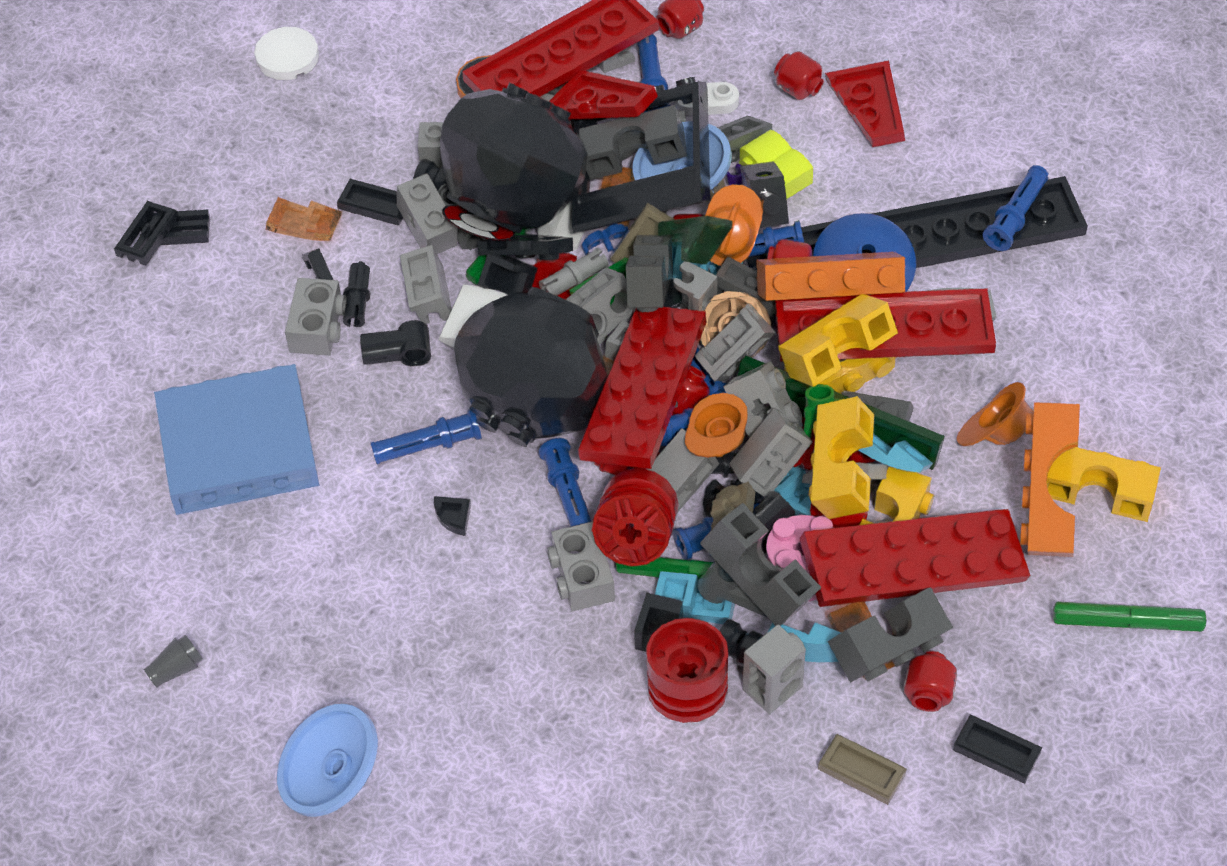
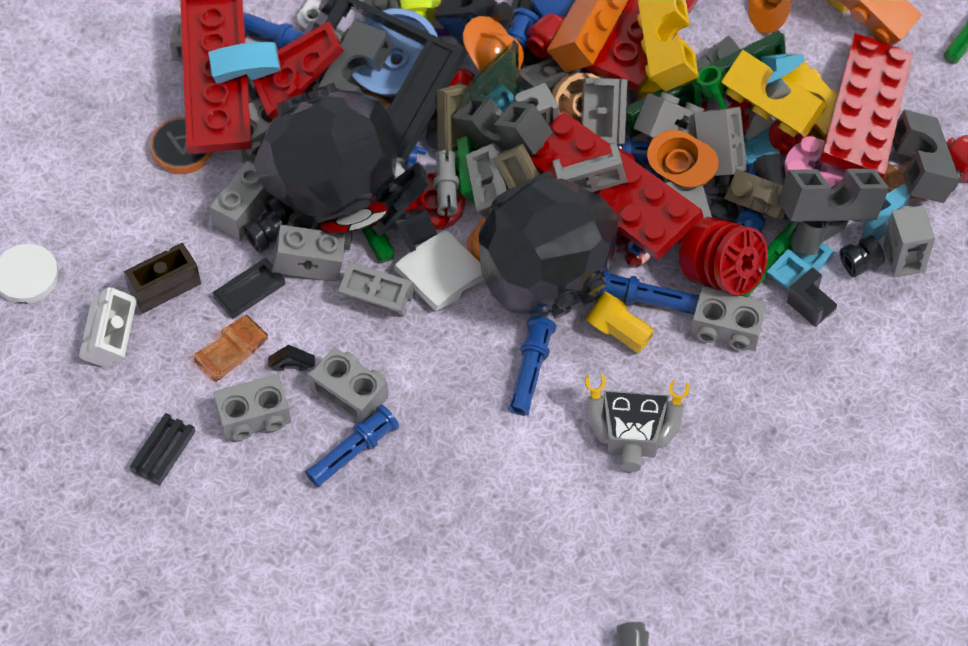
camera: 60 degrees left, 5 degrees up
(151, 234) = (174, 490): black tile -> none
(235, 439) = (437, 498): medium blue panel -> none
(248, 262) = (250, 400): none -> light grey brick
(259, 125) = (108, 327): none -> white brick
(272, 355) = (364, 436): none -> blue pin
(327, 760) = (782, 577): light blue dish -> none
(333, 133) = (162, 277): none -> dark brown brick
(356, 294) = (345, 343): black axle -> none
(407, 344) = (424, 335): black piece -> none
(412, 541) = (634, 422): none -> torso
(453, 513) = (616, 381): black tile -> none
(517, 472) = (613, 318): none -> yellow piece
(579, 60) = (253, 59): none -> medium azure slope
(607, 312) = (515, 166): none -> dark tan tile
(631, 356) = (594, 173): none -> light grey hinge
(687, 670) = (875, 295): red wheel -> none

